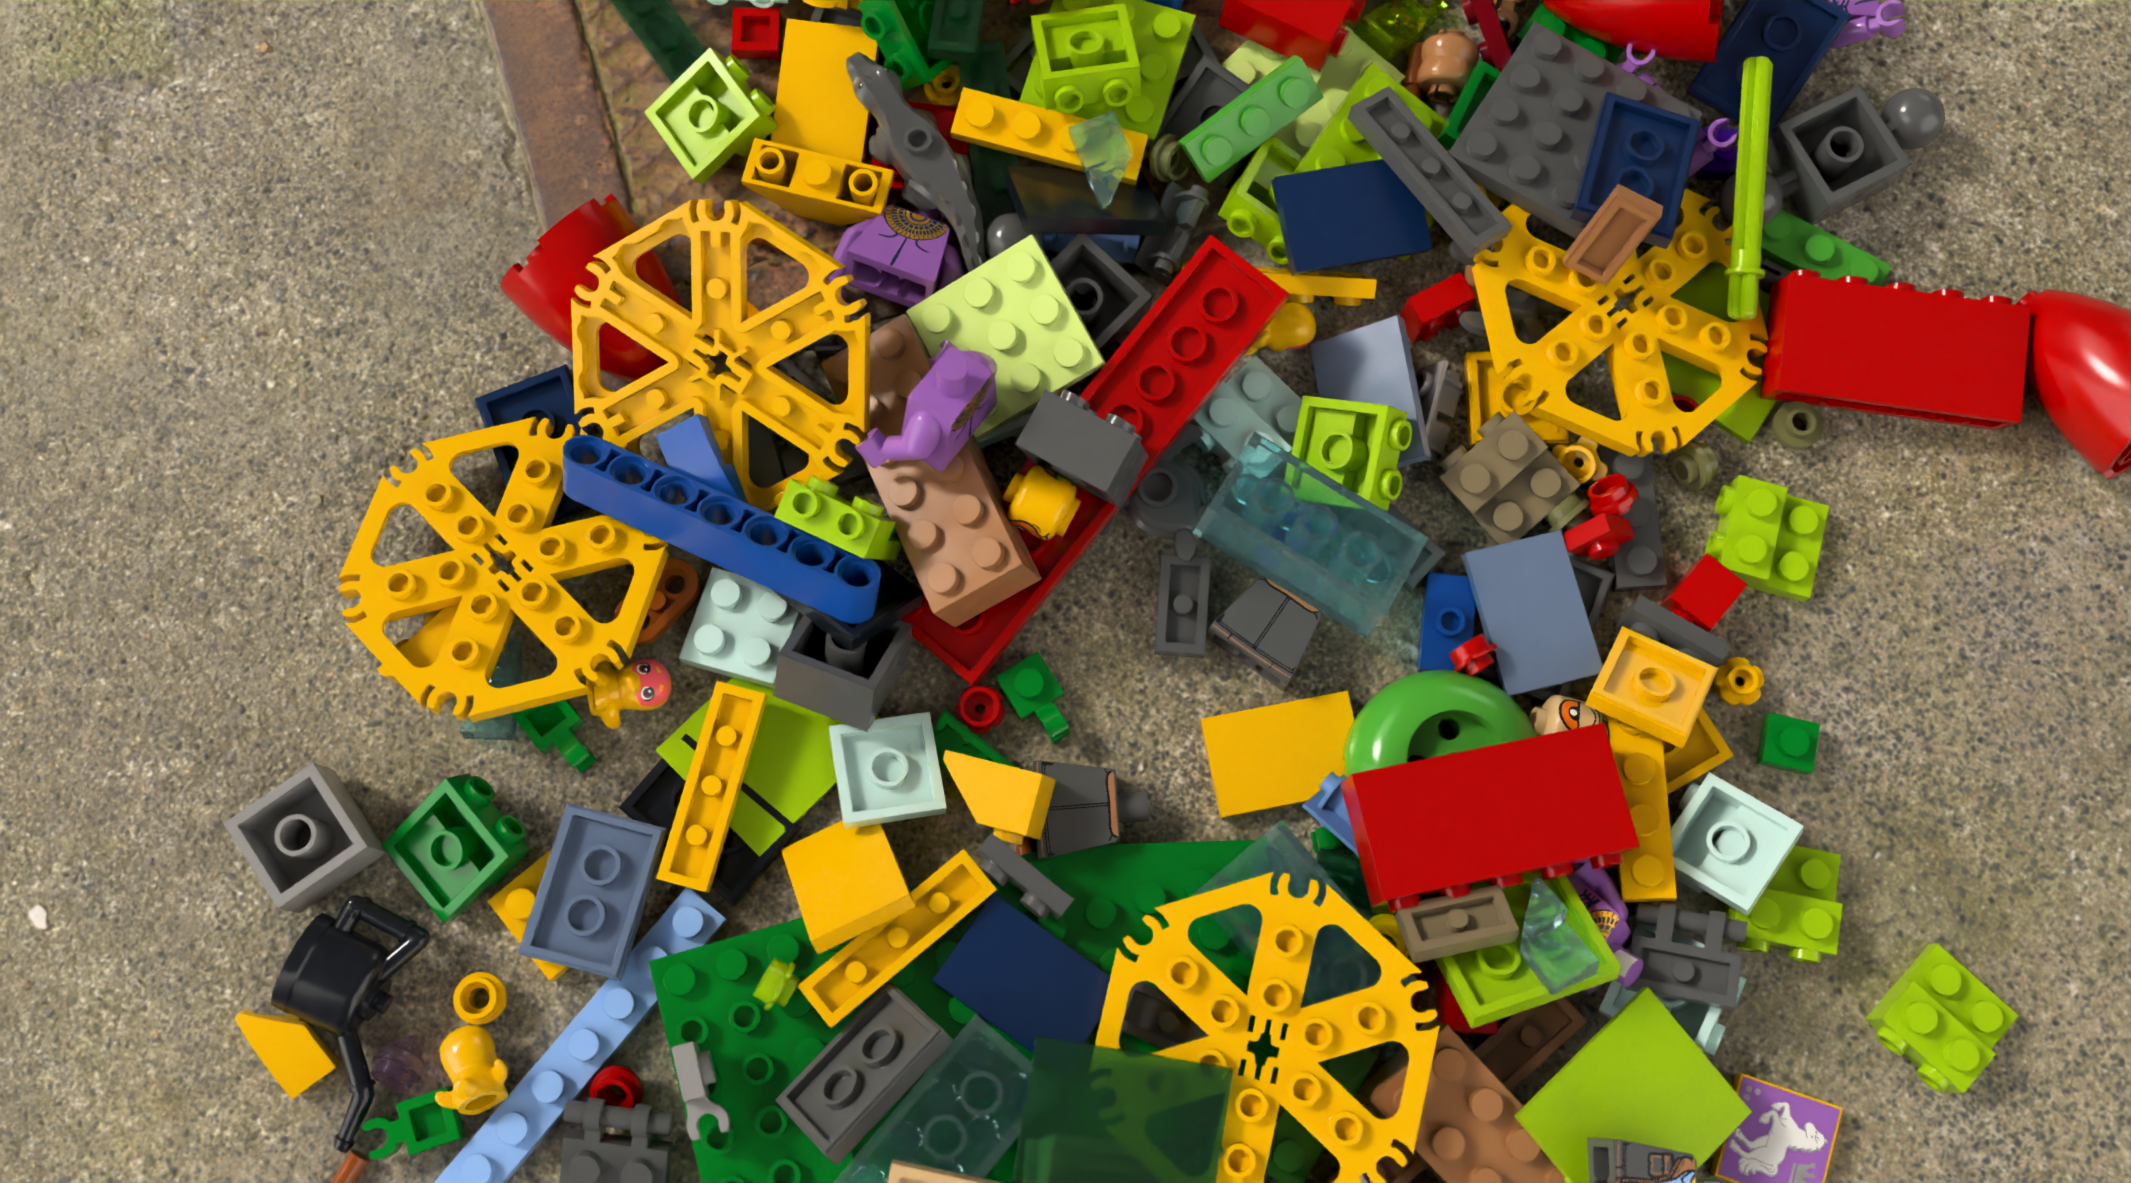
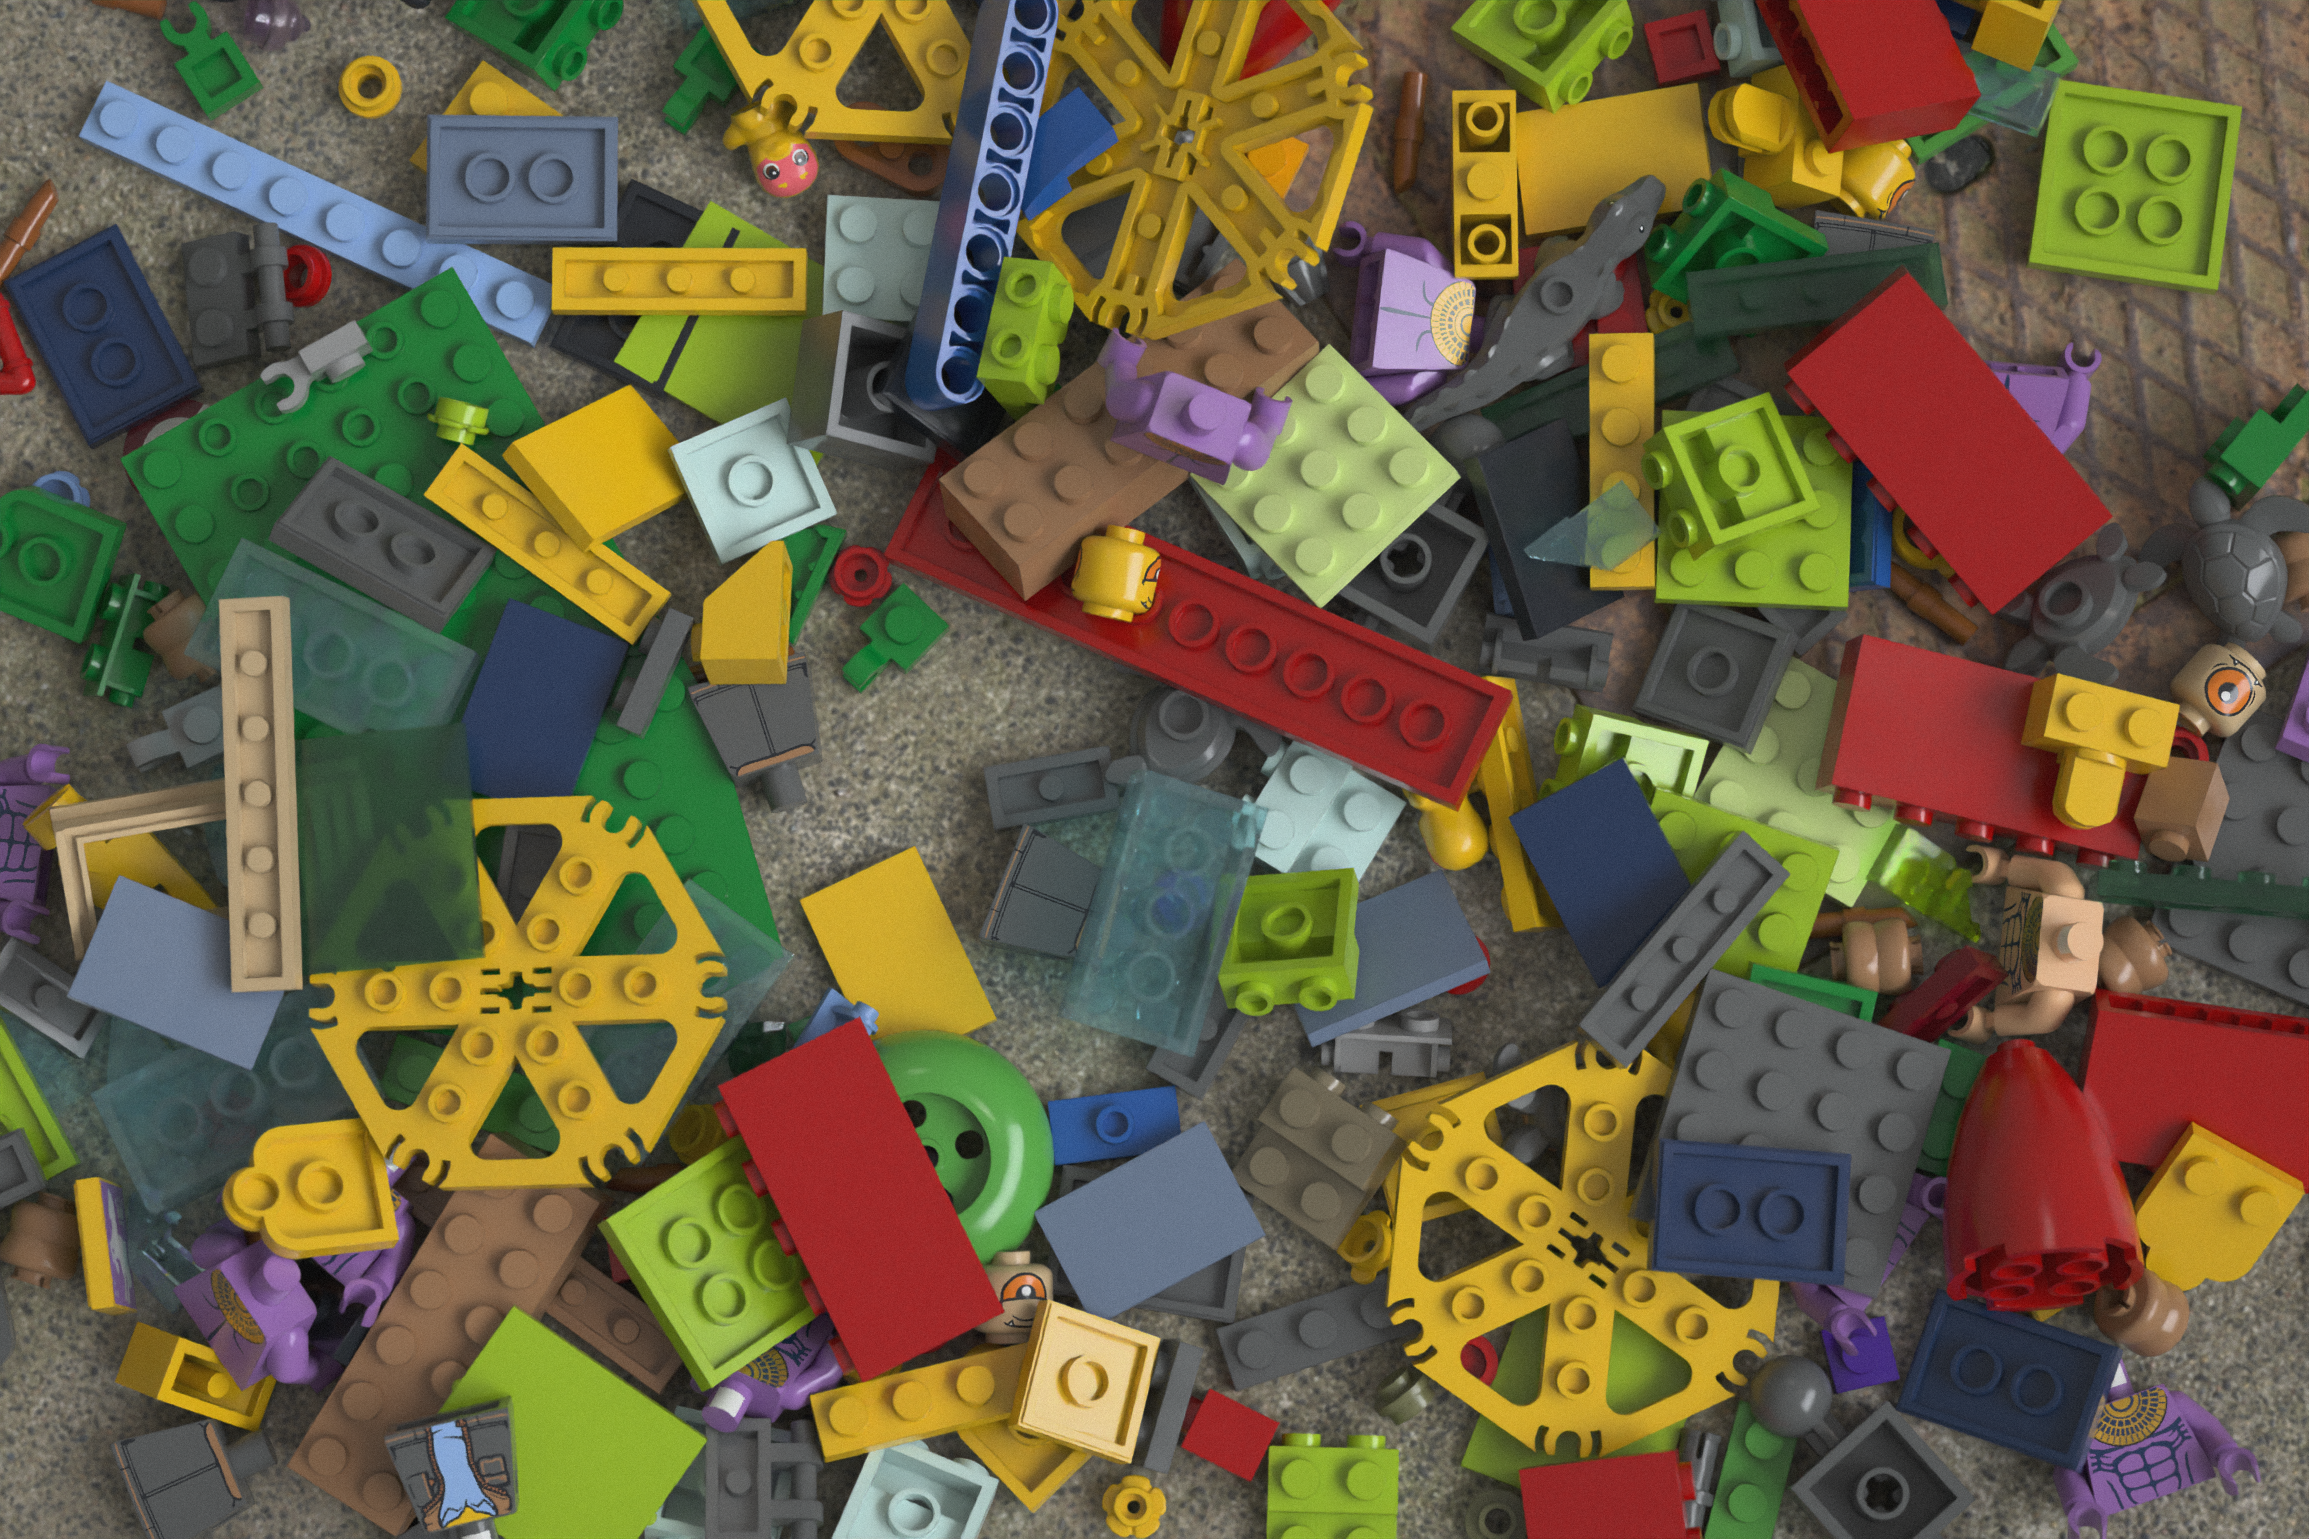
camera: 80 degrees right, 5 degrees up
(474, 1070) = (286, 106): yellow animal -> none
(1082, 447) = (1184, 603): dark grey brick -> none
(1168, 159) = (1641, 625): olive plate -> none
(1251, 118) = (1711, 712): bright green plate -> none
(1437, 308) = (1525, 1016): red piece -> none
(1457, 924) = (714, 1183): dark tan plate -> none
(1473, 655) = (1072, 1157): red plate -> none
(1550, 943) = (720, 1298): clear light blue slope -> none
(1568, 513) = (1294, 1245): olive plate -> none
(1598, 536) = (1269, 1286): red plate -> none
(1612, 234) = (1638, 1194): medium nougat tile -> none
(1612, 495) = (1323, 1288): red plate -> none
(1749, 189) = (1783, 1378): lime axle -> none

